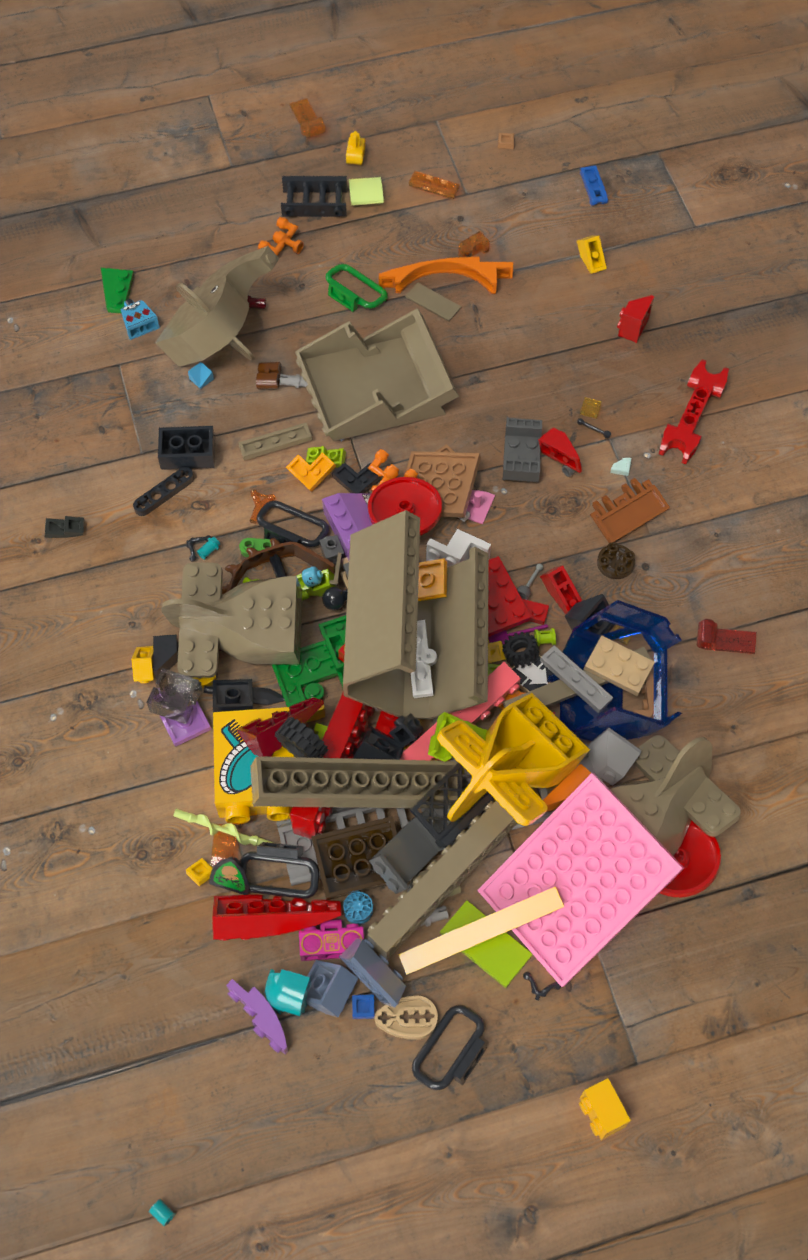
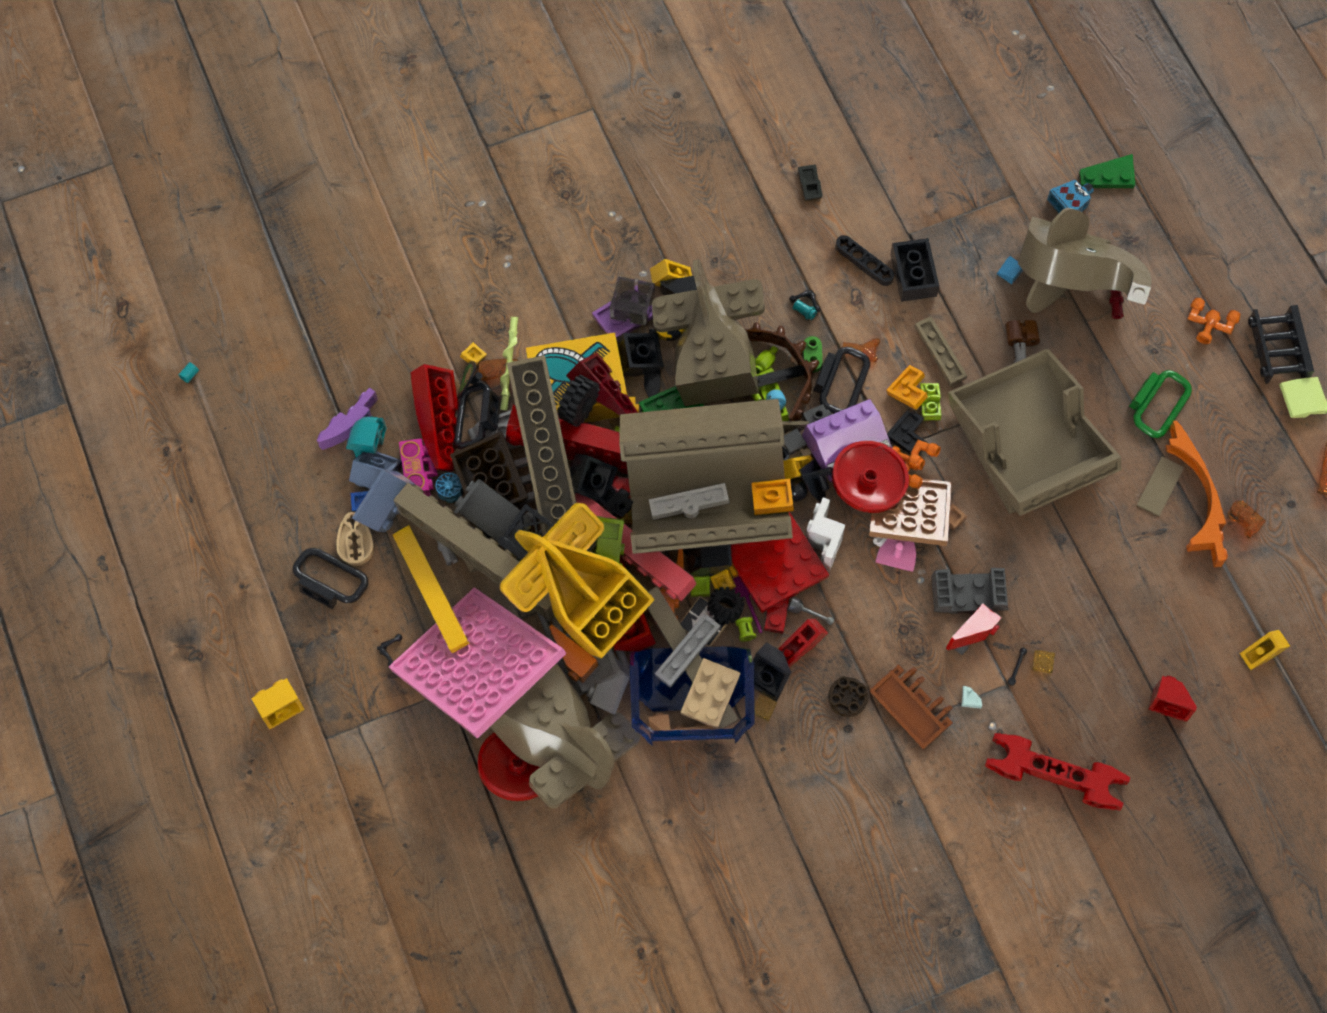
camera: 85 degrees right, 5 degrees up
(499, 957) = (412, 611): lime tile -> none
(712, 638) = (768, 809): clear red door -> none

